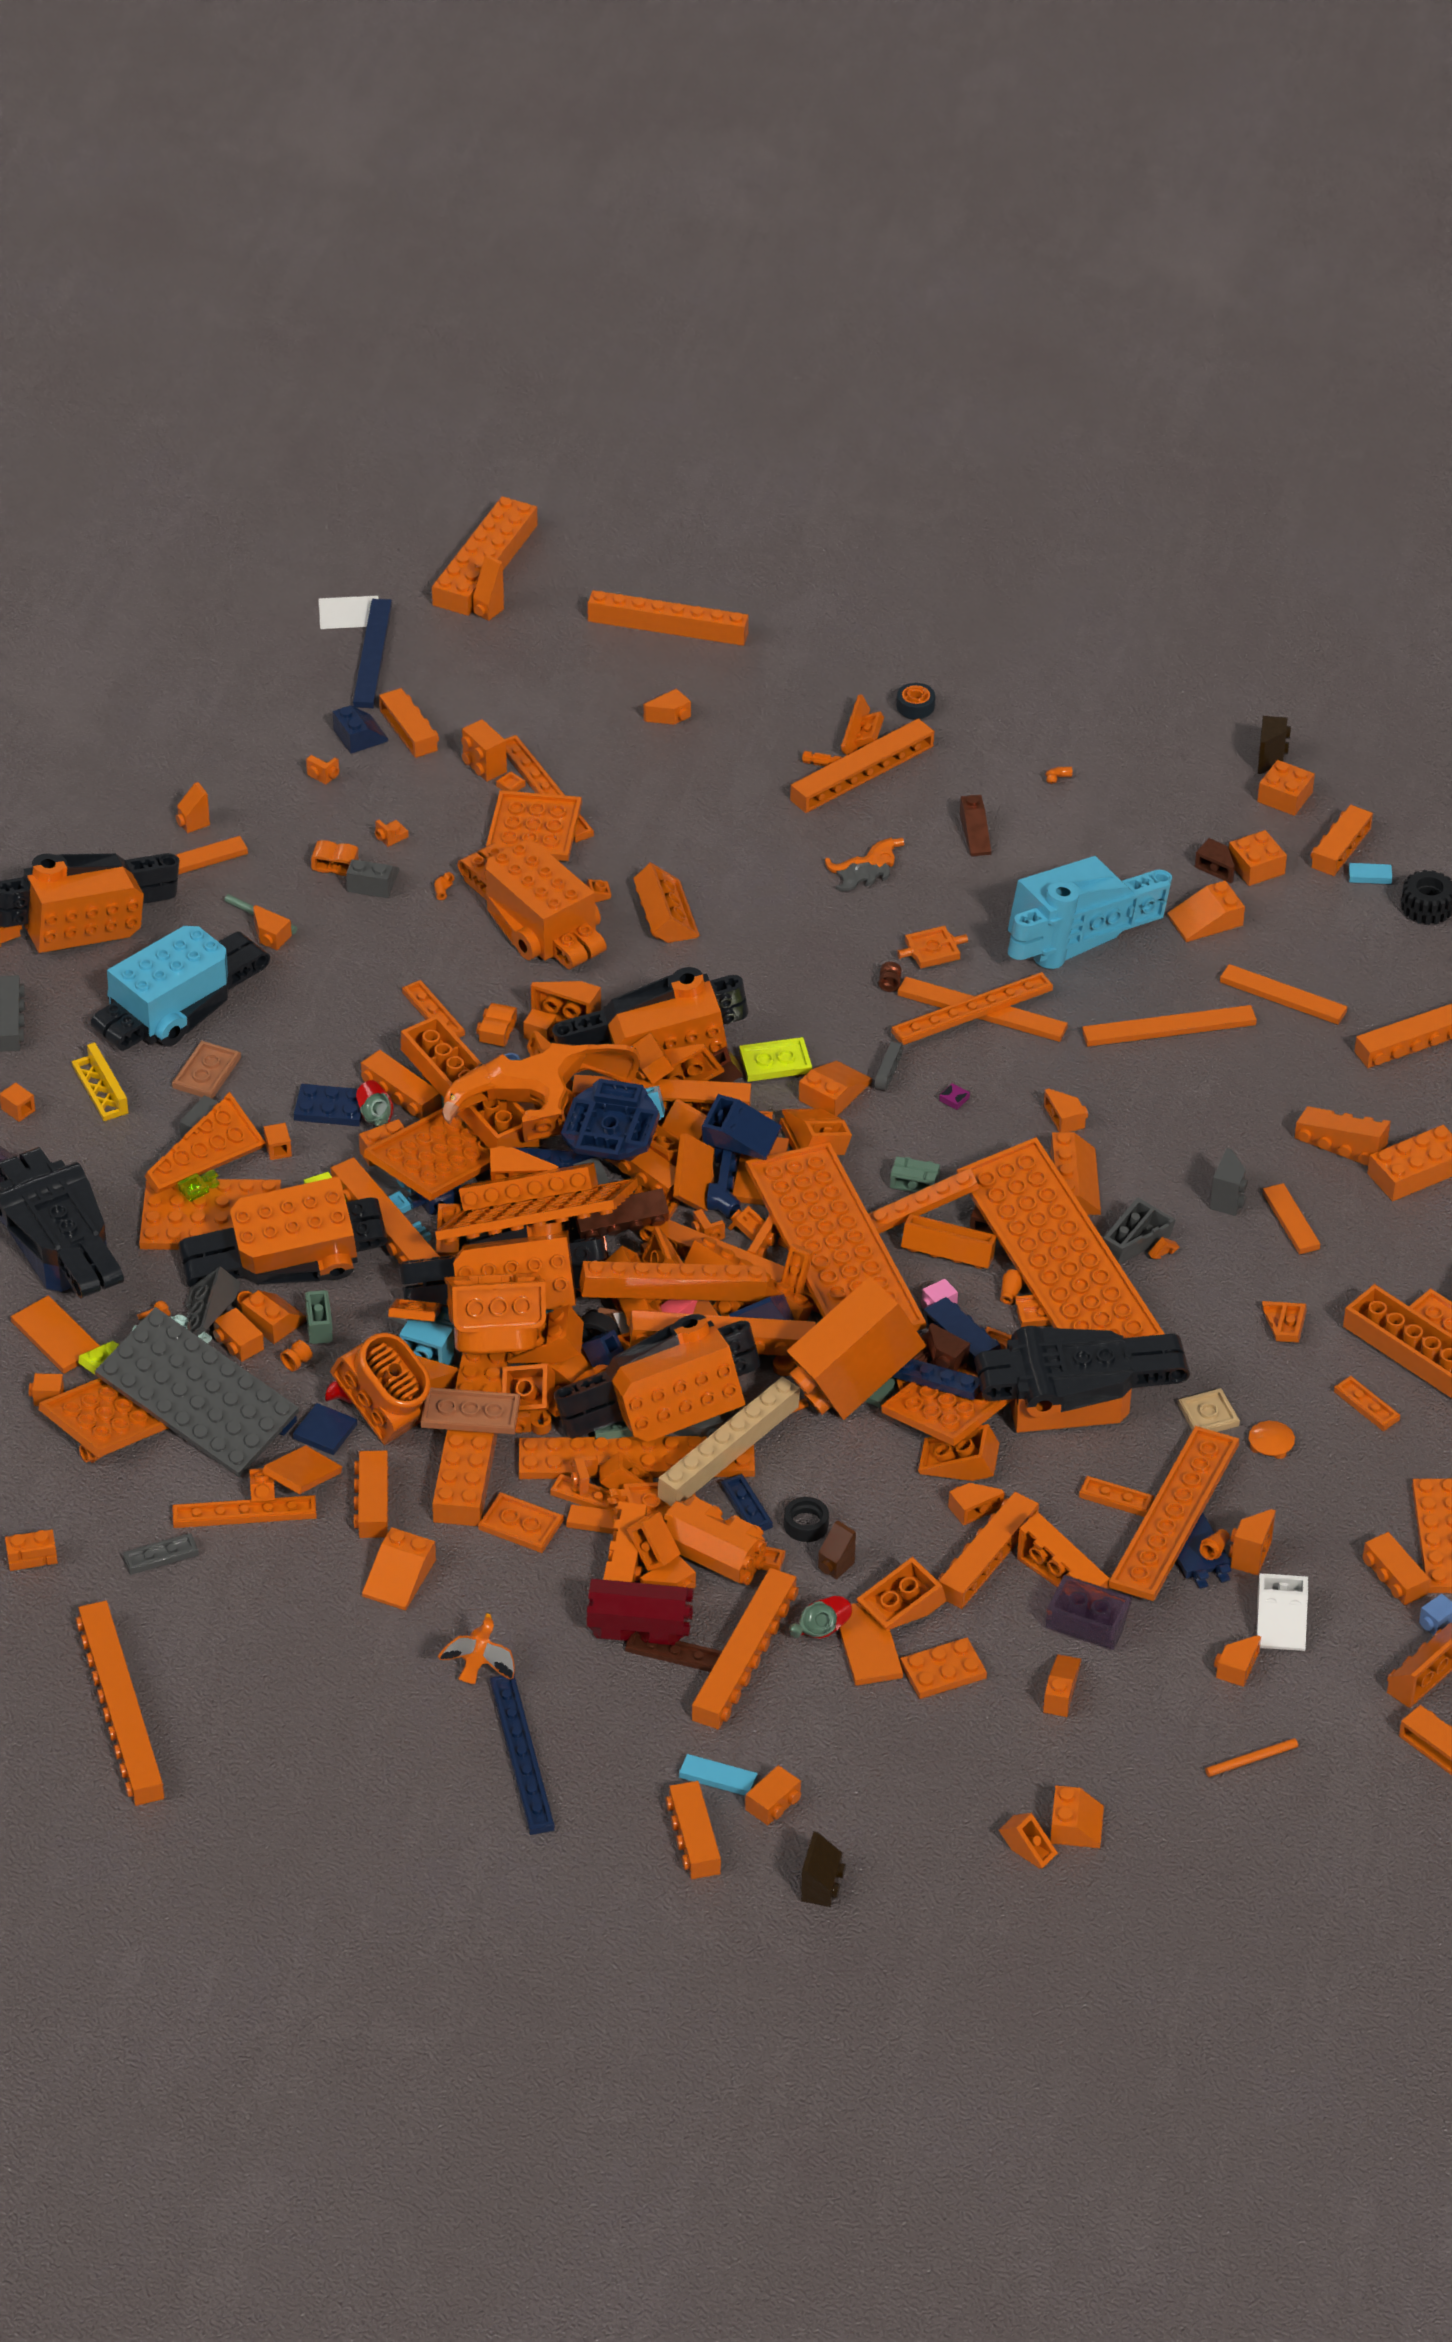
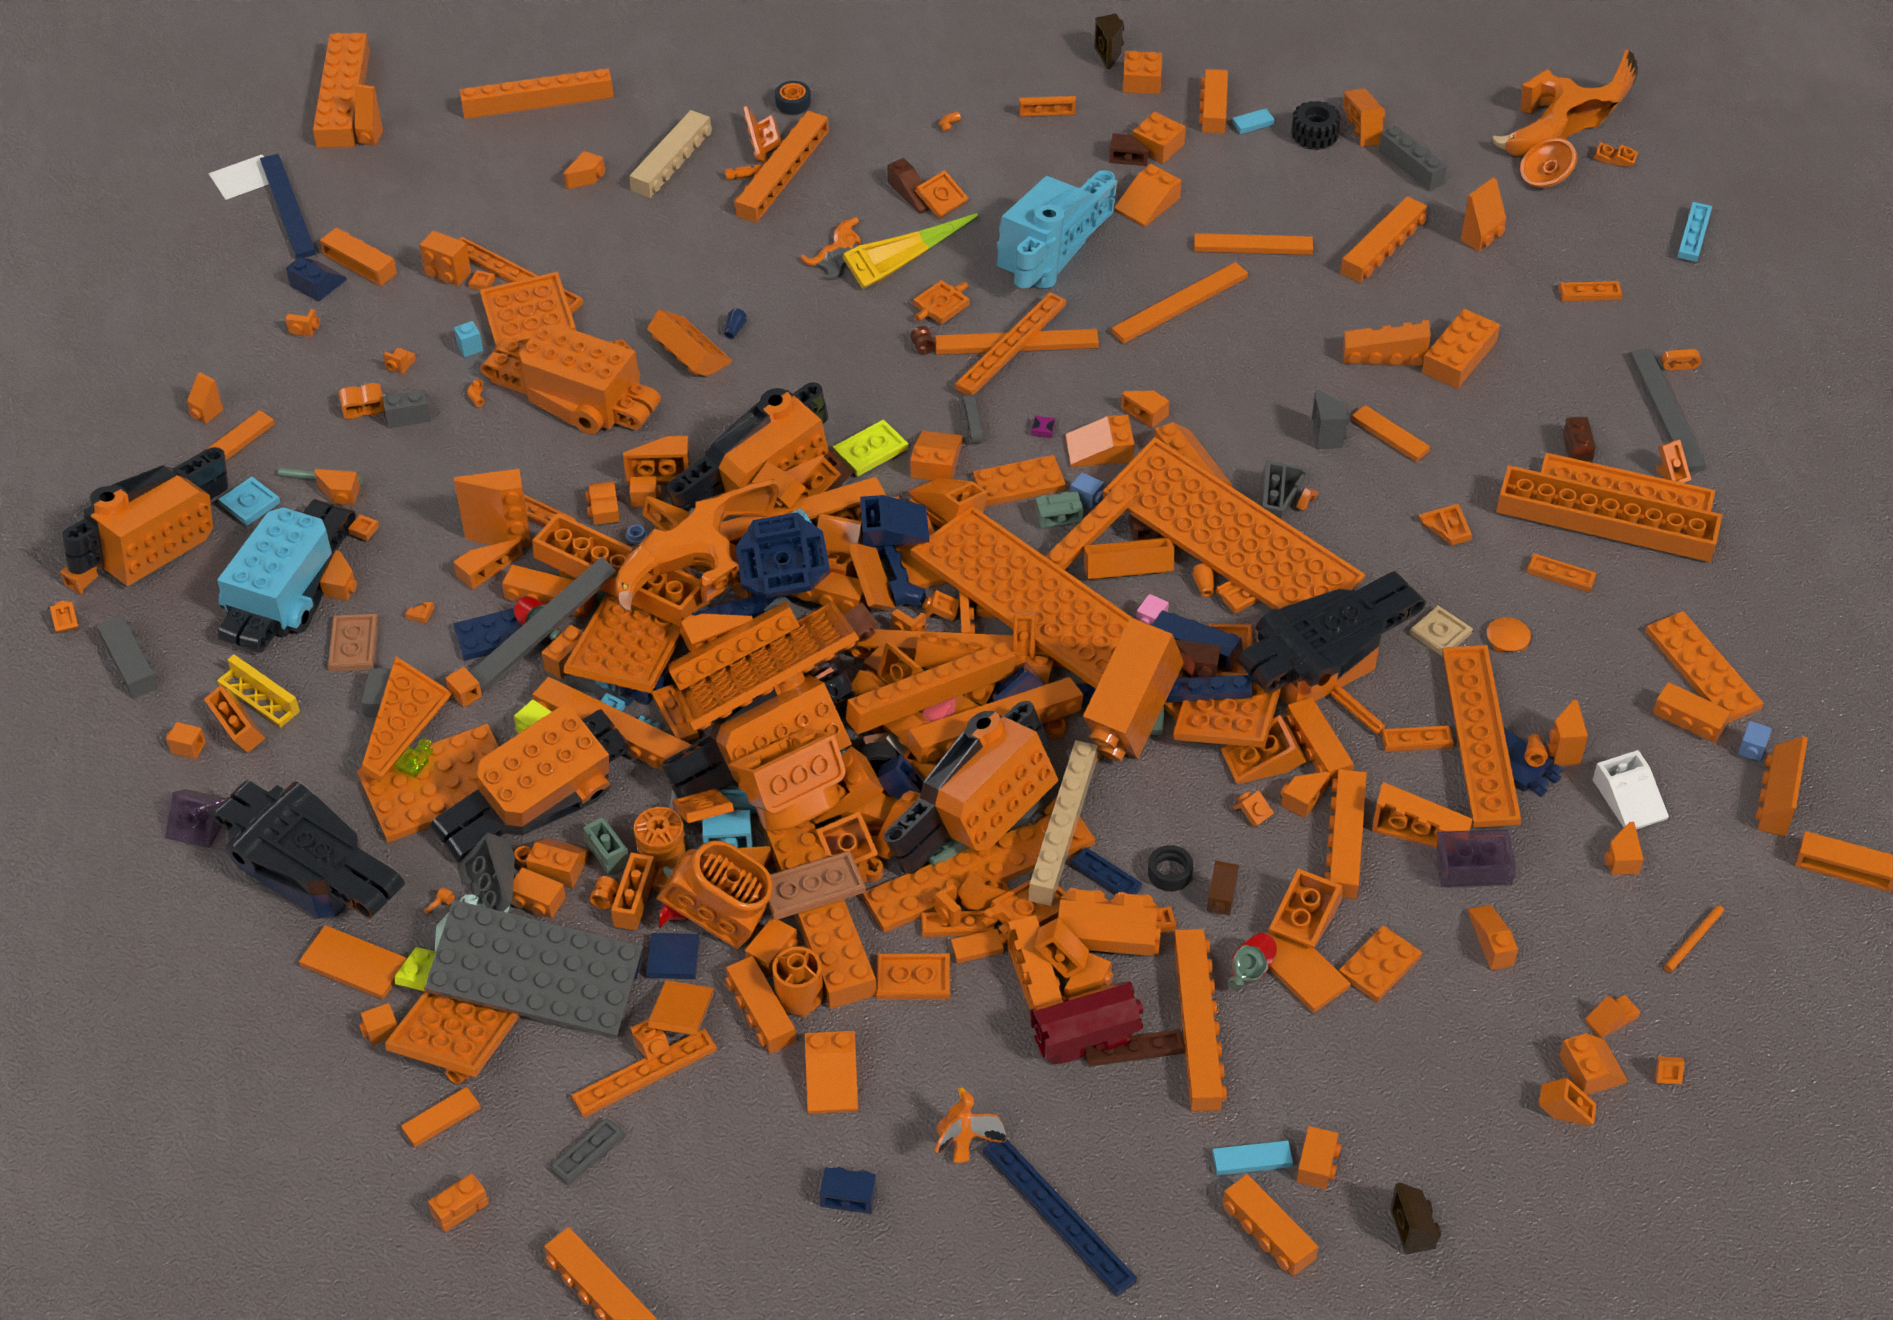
camera: 25 degrees left, 5 degrees up
(56, 1481) = (440, 1117): none -> orange tile
(66, 1097) = (234, 718): none -> orange brick
(185, 912) = (249, 501): none -> medium azure plate
(222, 1010) = (338, 578): none -> orange slope
(271, 972) = (363, 527): none -> orange plate
(279, 1065) = (420, 613): none -> orange tile
(315, 1364) = (633, 891): none -> orange brick
(354, 1664) = (848, 1190): none -> dark blue brick
(360, 1040) = (484, 562): none -> orange slope
(365, 1318) = (661, 835): none -> orange wheel
(371, 1109) = (543, 623): none -> dark grey tile
(387, 991) = (493, 507): none -> orange slope
(411, 1484) = (798, 980): none -> orange cylinder
(412, 1451) = (770, 942): none -> orange brick
(463, 833) = (468, 339): none -> medium azure brick
(722, 900) = (734, 322): none -> dark blue cone
(761, 718) = (670, 154): none -> tan brick
(897, 886) = (879, 259): none -> yellow plate
(898, 1137) = (1020, 480): none -> orange plate
(918, 1497) = (1254, 807): none -> orange bracket
(950, 1162) = (1089, 490): none -> medium blue brick
(997, 1128) = (1101, 442): none -> orange slope
(1000, 843) = (941, 194): none -> orange tile
(1017, 1458) = (1317, 738): none -> orange brick
(1076, 1451) = (1357, 710): none -> orange axle
(1124, 1790) = (1612, 1015): none -> orange slope
(1141, 1850) = (1669, 1070): none -> orange tile
(1165, 790) = (1047, 106): none -> orange tile

